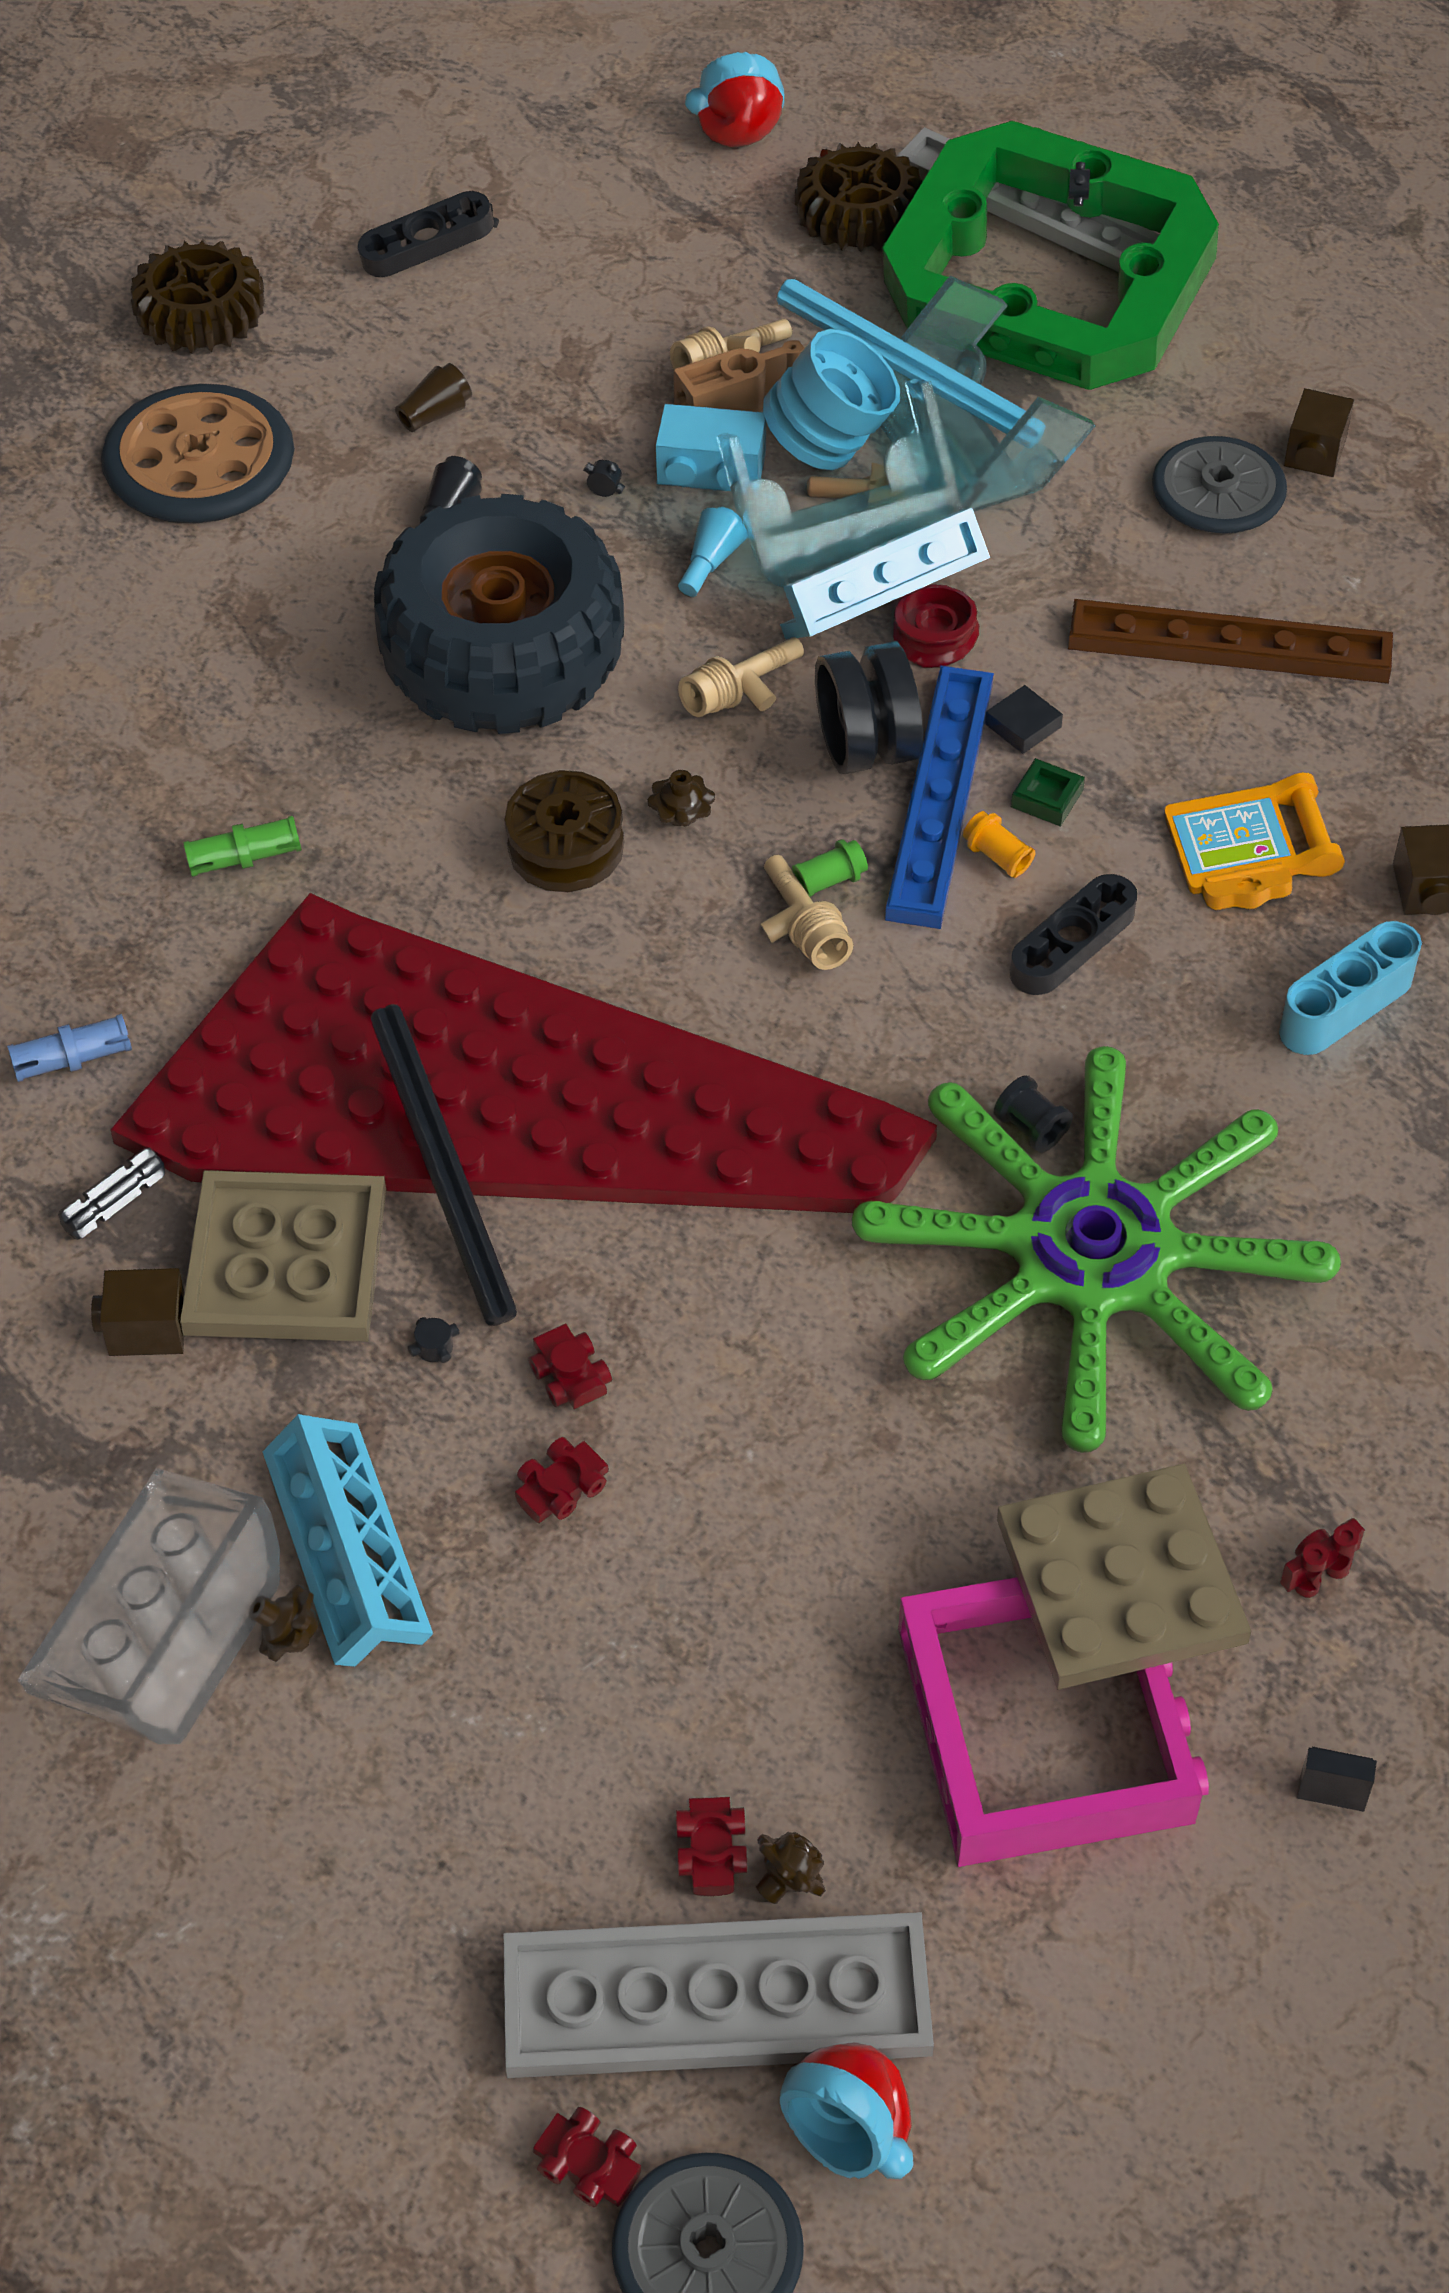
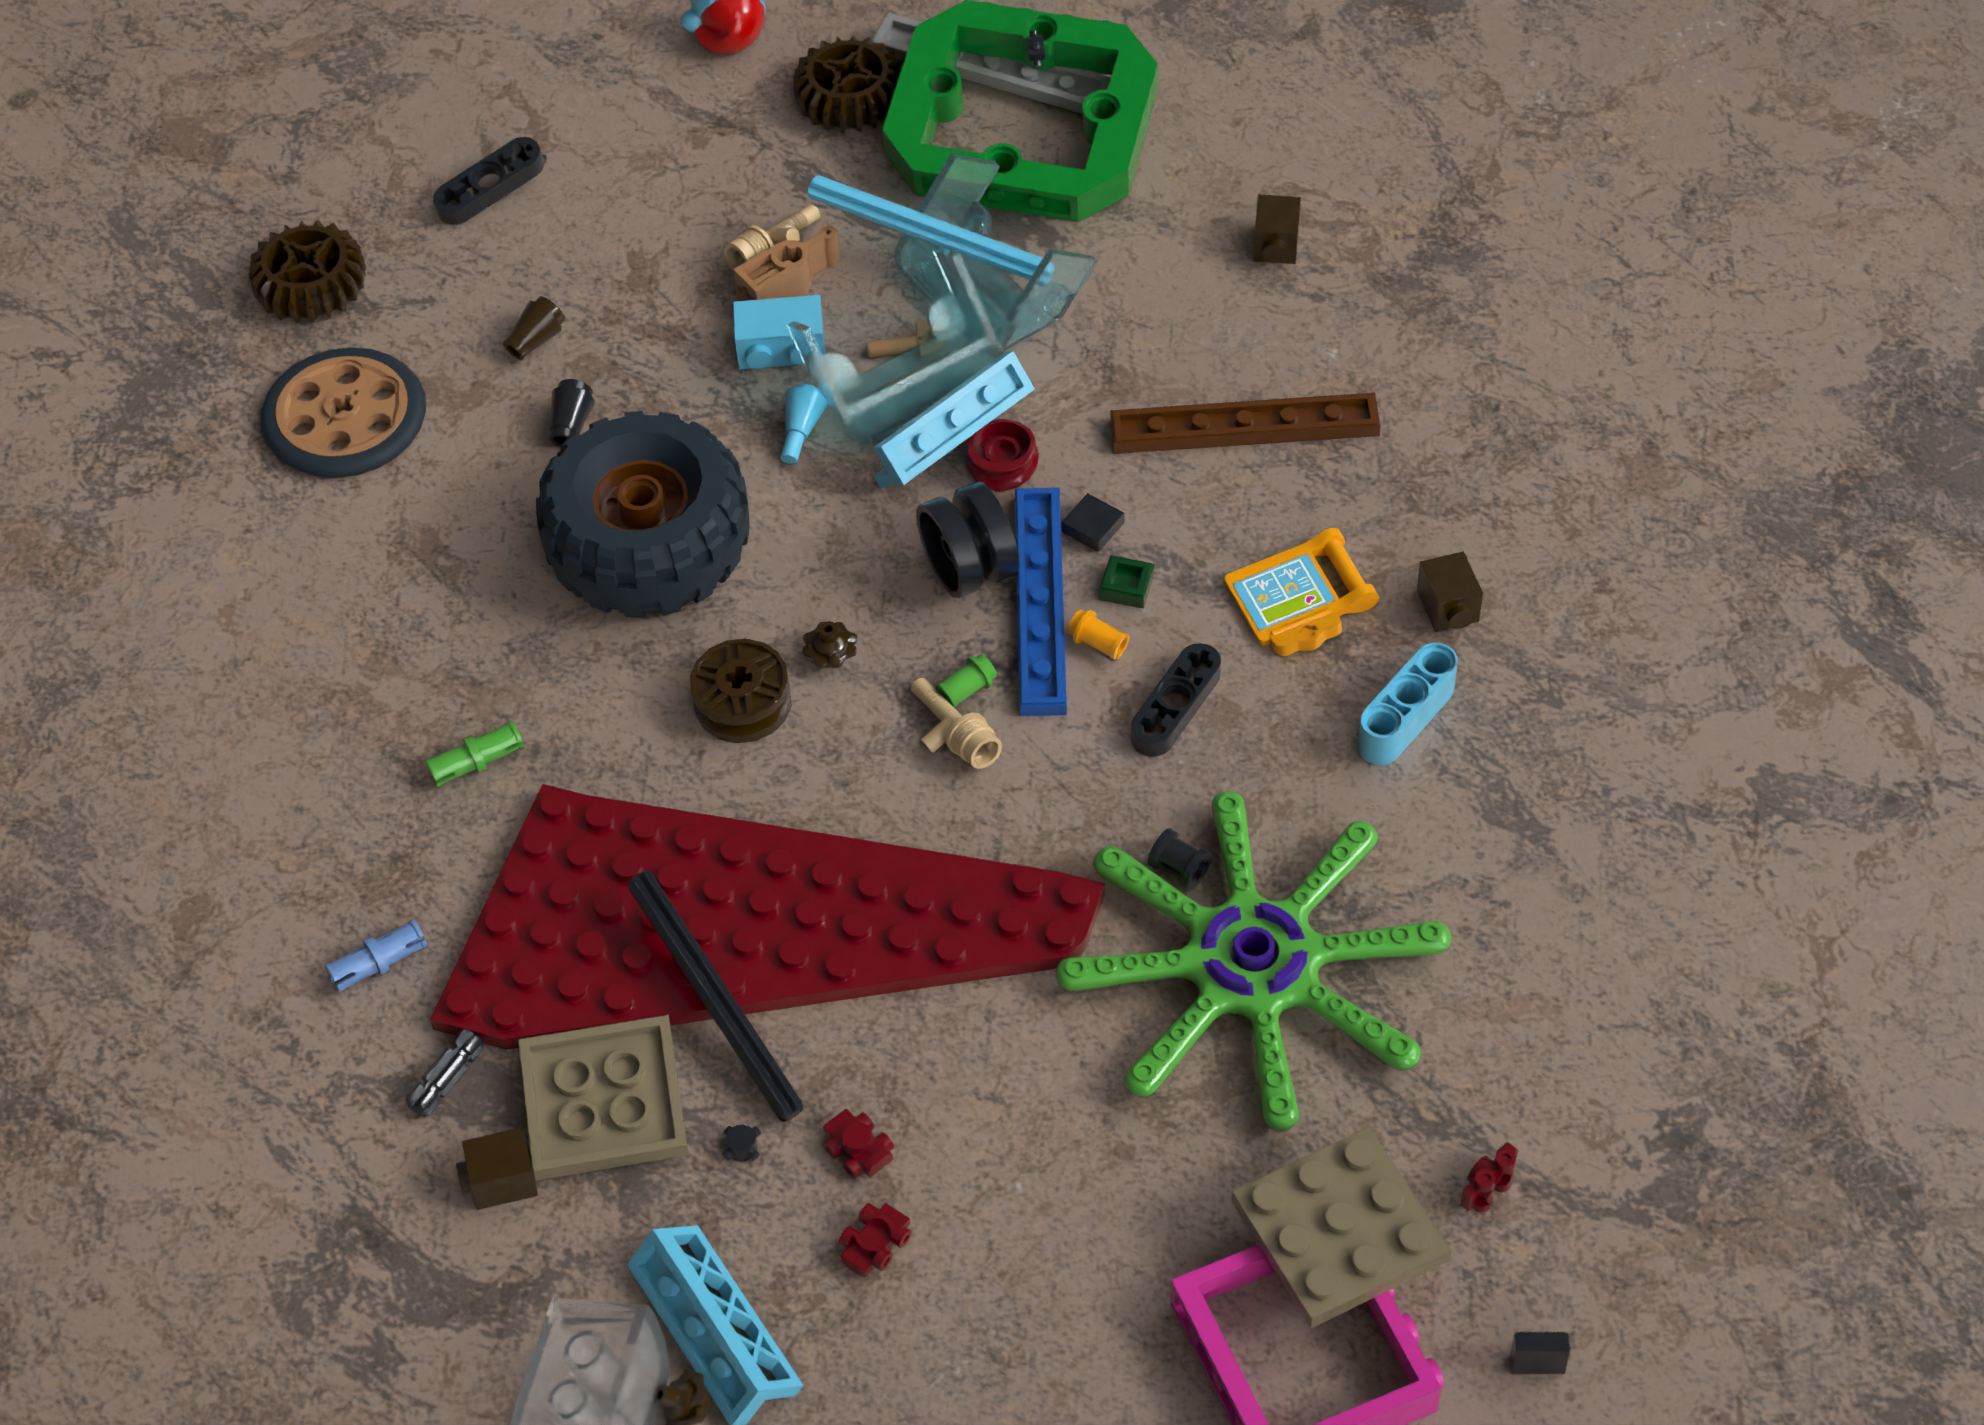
camera: 10 degrees left, 0 degrees up
(604, 478) = (695, 373): black piece -> none
(721, 684) = (841, 538): tan piece -> none
(831, 399) = (872, 274): medium azure wheel -> none
(1219, 484) = (1205, 288): dark grey wheel -> none

